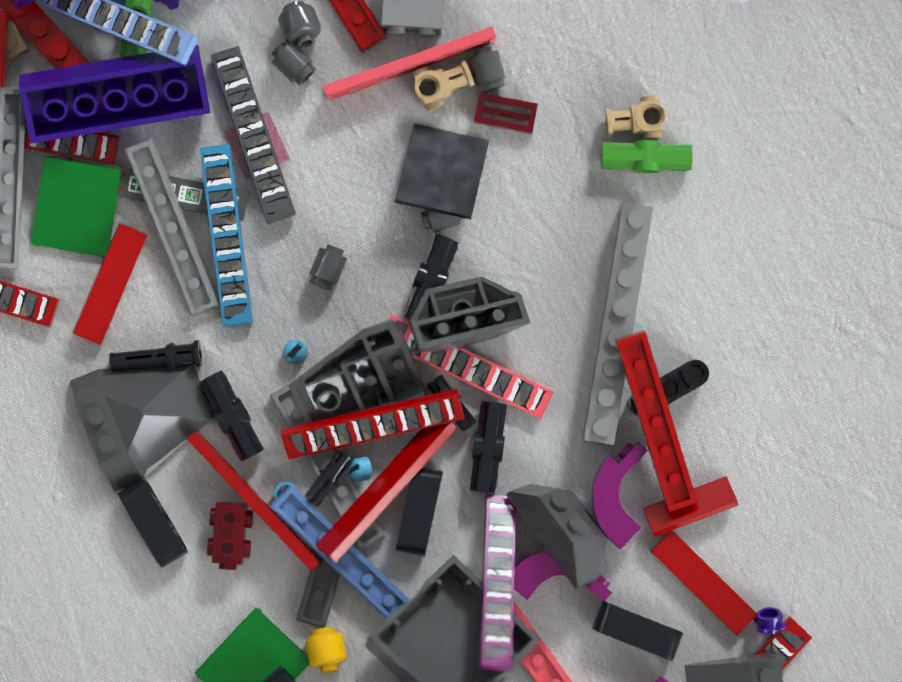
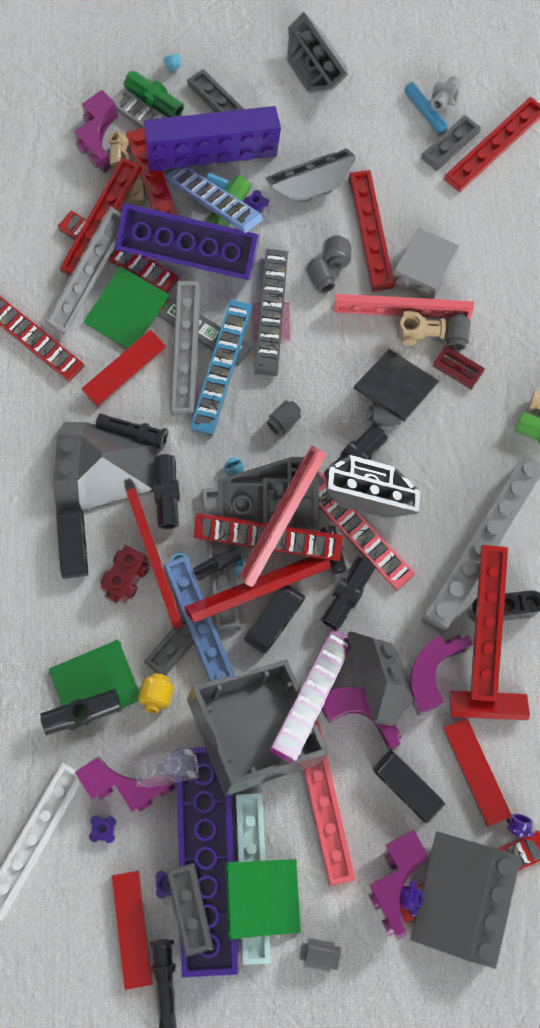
camera: 30 degrees right, 15 degrees down
(382, 401) = (282, 515): none -> coral tile

